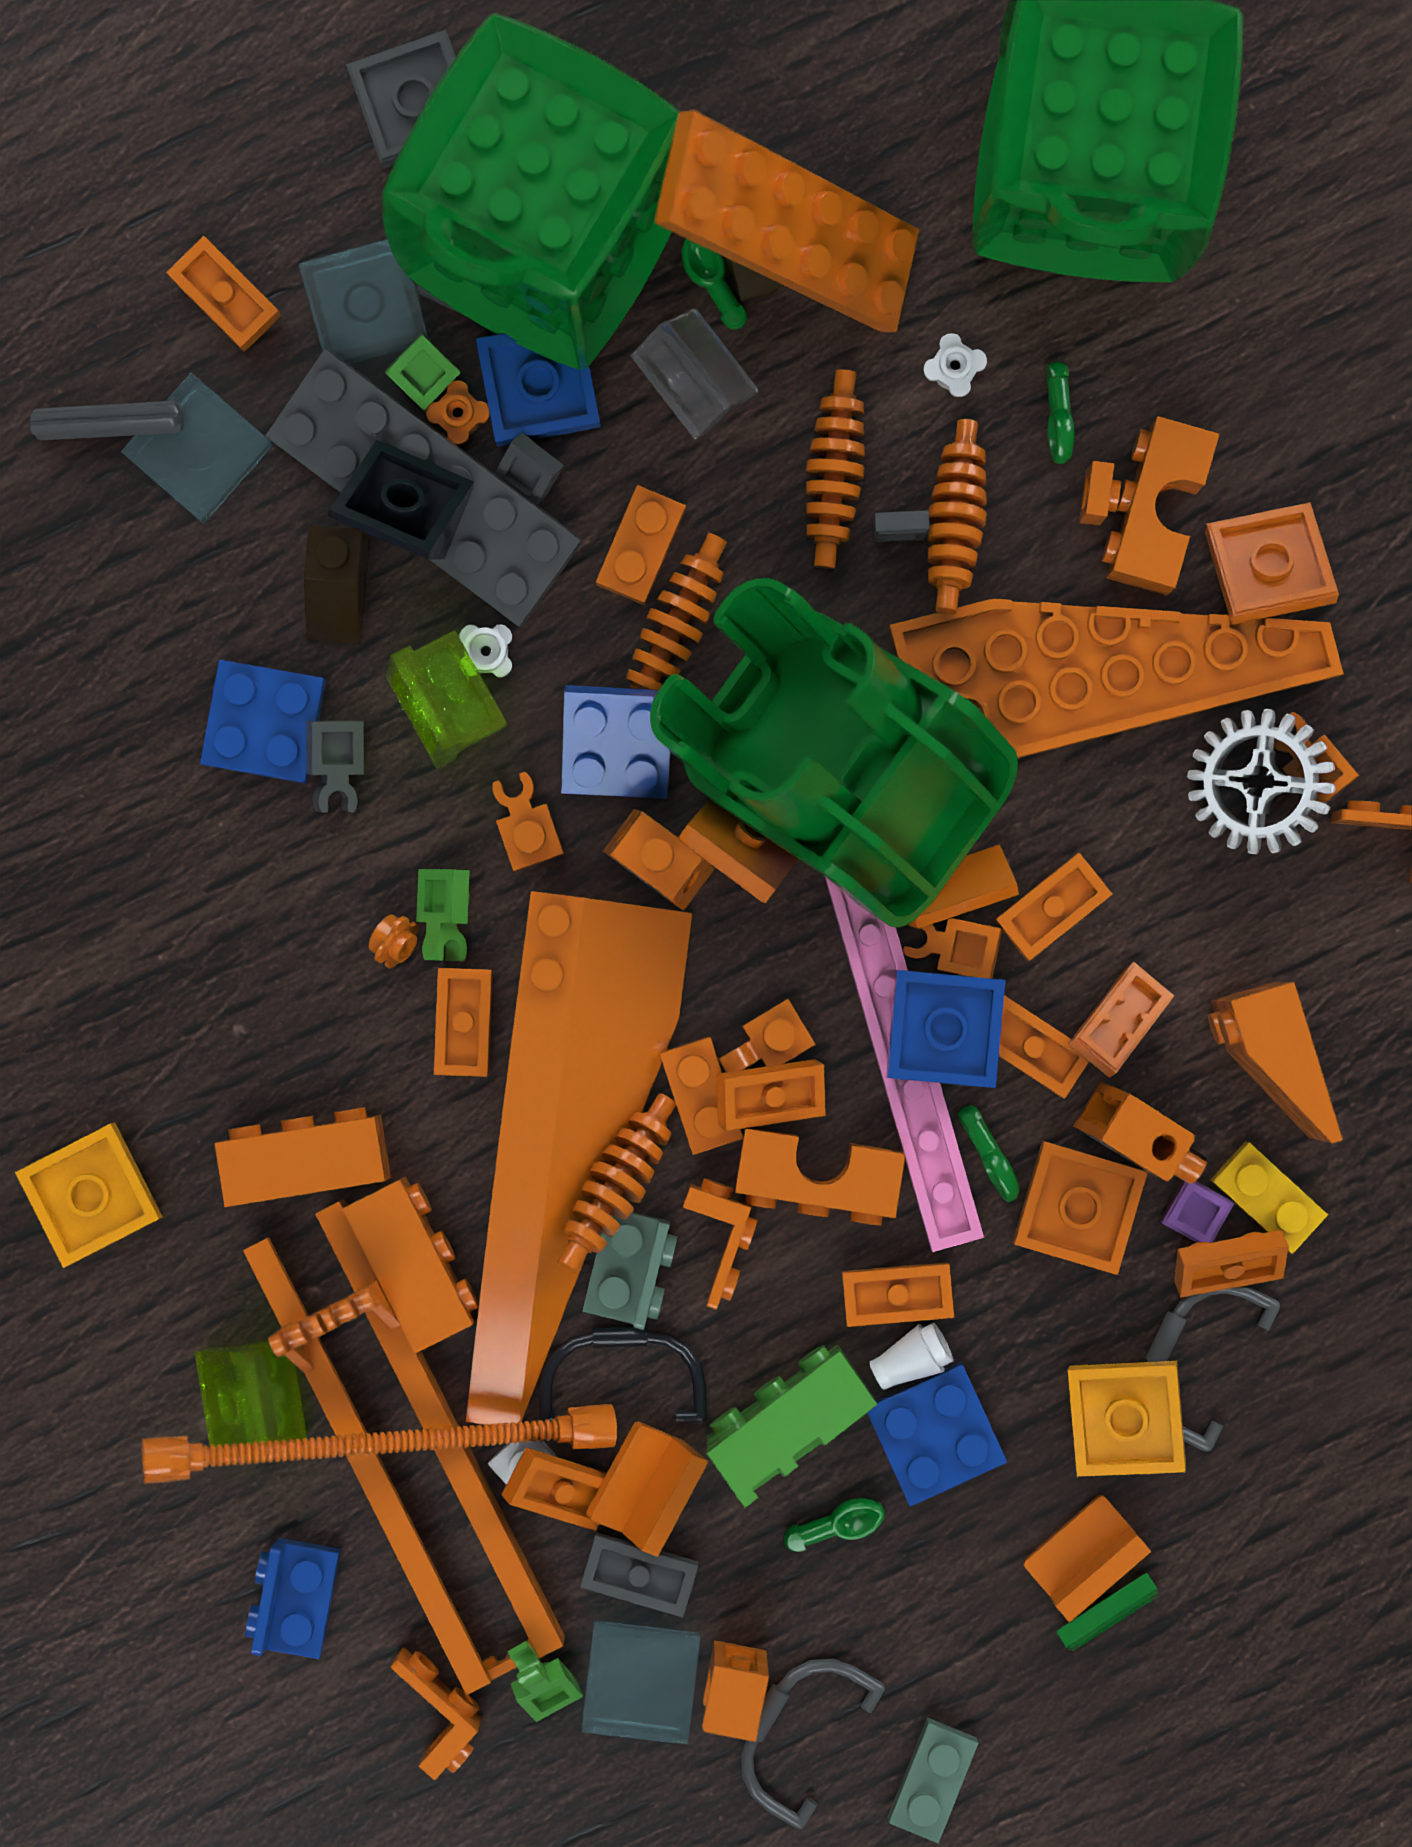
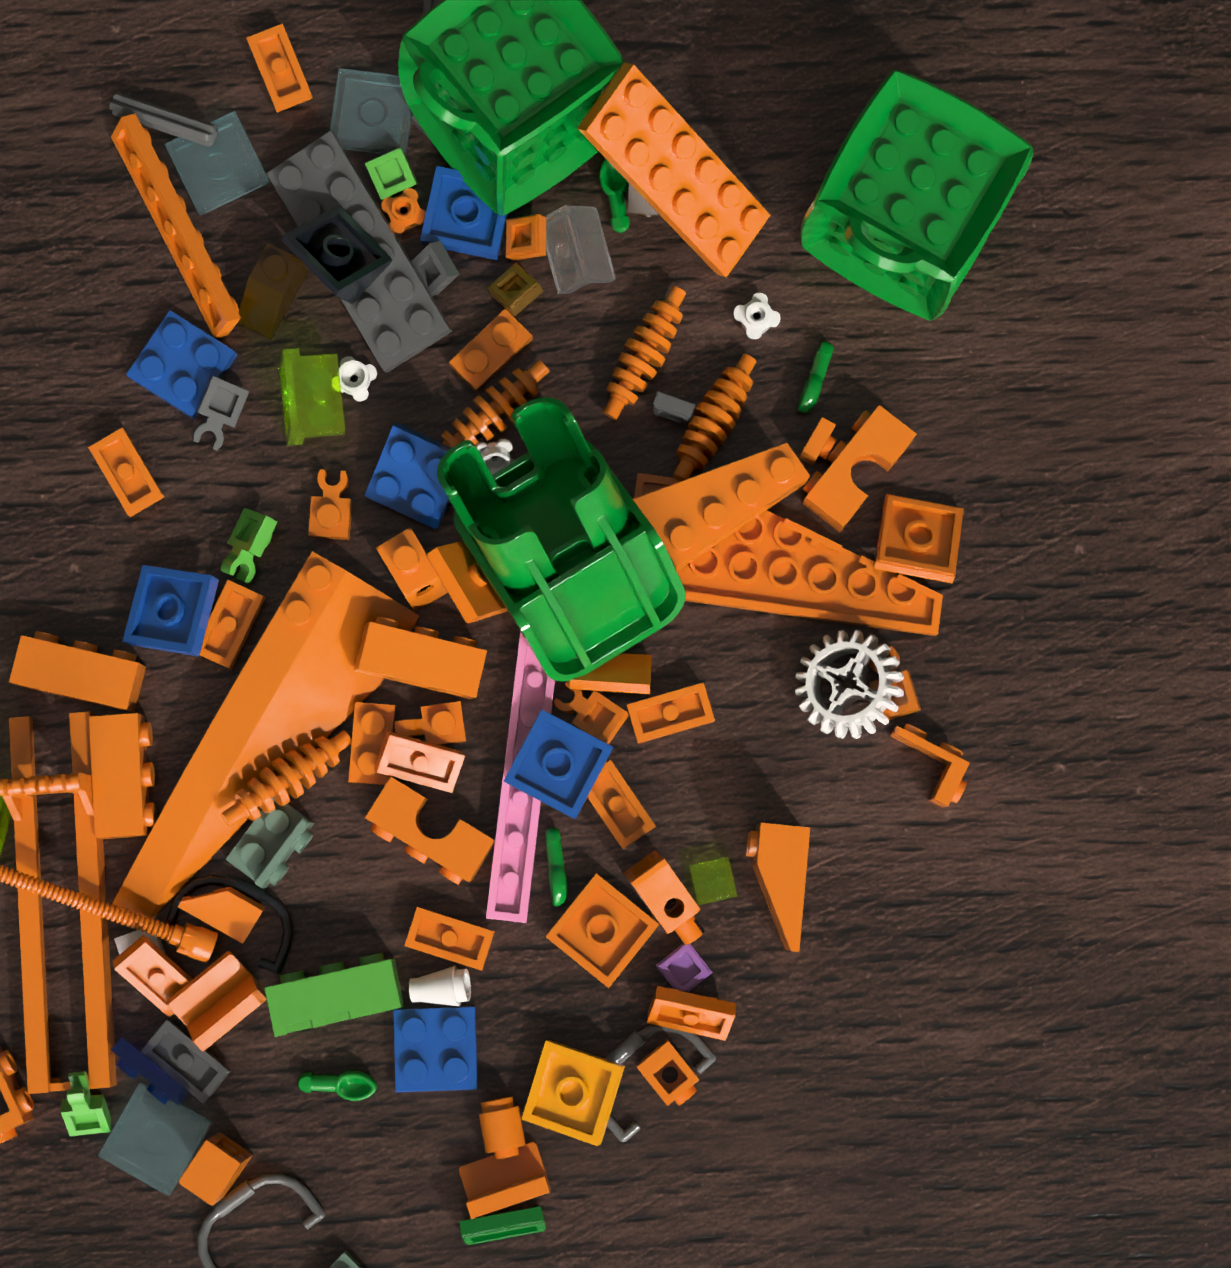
camera: 15 degrees right, 5 degrees down
(180, 550) = (175, 226): none -> orange plate
(253, 885) = (126, 472): none -> orange plate
(384, 1035) = (170, 610): none -> blue plate
(393, 940) = (205, 548): orange plate -> none
(579, 1603) = (134, 1062): none -> clear blue plate
(609, 1374) = (225, 910): none -> orange tile
(625, 383) = (526, 237): none -> orange tile
(639, 455) = (515, 289): none -> pearl gold tile
(705, 673) = (501, 449): none -> white plate
(717, 1202) = (350, 820): orange bracket -> none
(719, 967) = (420, 658): none -> orange brick
(1009, 625) = (719, 502): none -> orange wedge
(1057, 1496) = (501, 1127): none -> orange brick
(1121, 1019) = (685, 810): orange plate -> none
(1188, 1090) = (713, 881): none -> clear neon green tile
(1250, 1363) = (653, 1065): none -> orange brick
(1268, 1196) = (739, 978): yellow plate -> none

